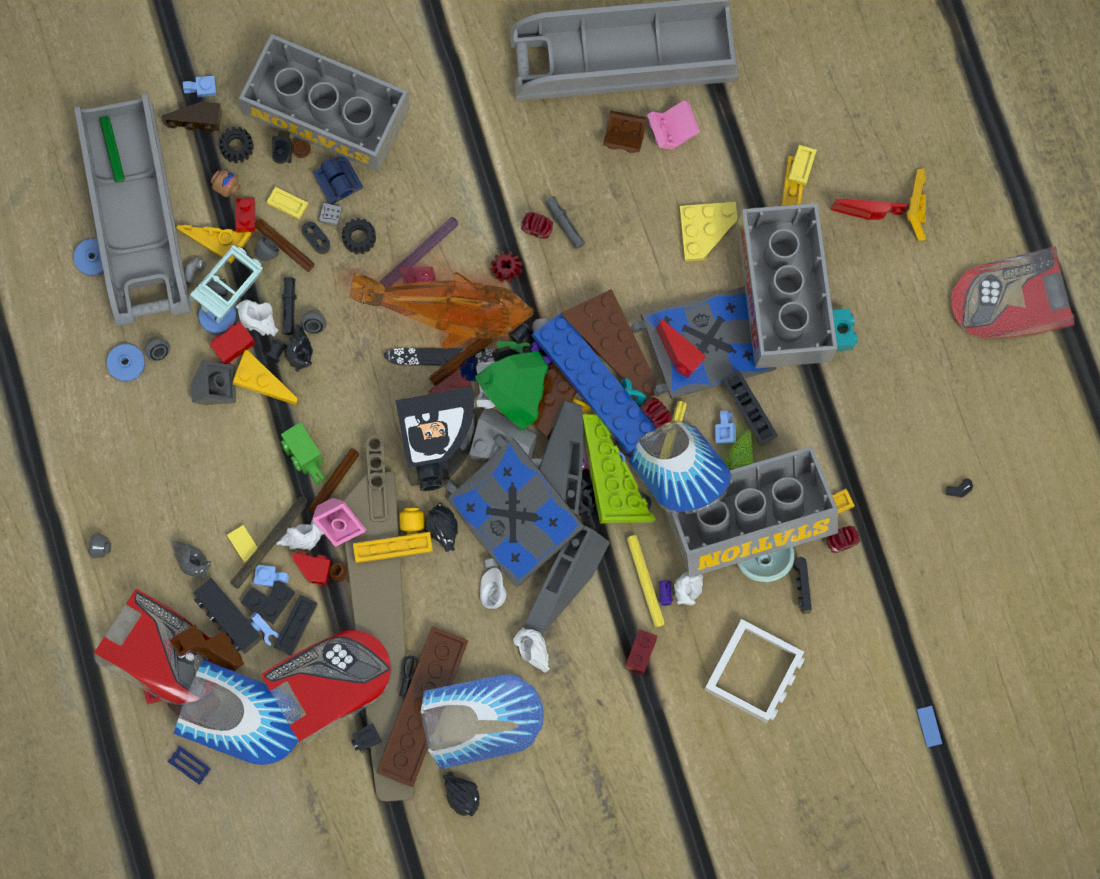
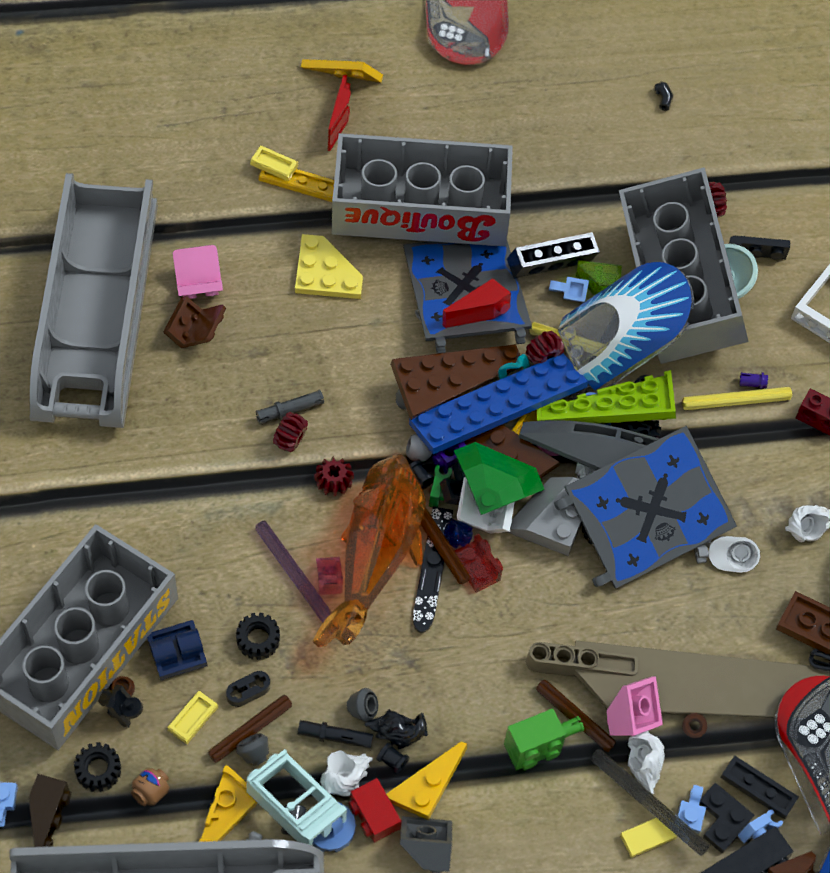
camera: 85 degrees left, 15 degrees down
(245, 215) = (199, 768): red plate -> none
(313, 568) = (690, 754): red slope -> none
(330, 214) = (220, 667): light grey tile -> none
(392, 547) = (676, 653): yellow tile -> none
(411, 520) = (640, 630): yellow head -> none
(437, 434) = (551, 570): black brick -> none
(442, 526) = (652, 596): black hair -> none
(567, 577) = (739, 484): dark grey wedge -> none
(688, 588) = (751, 356): white hair -> none

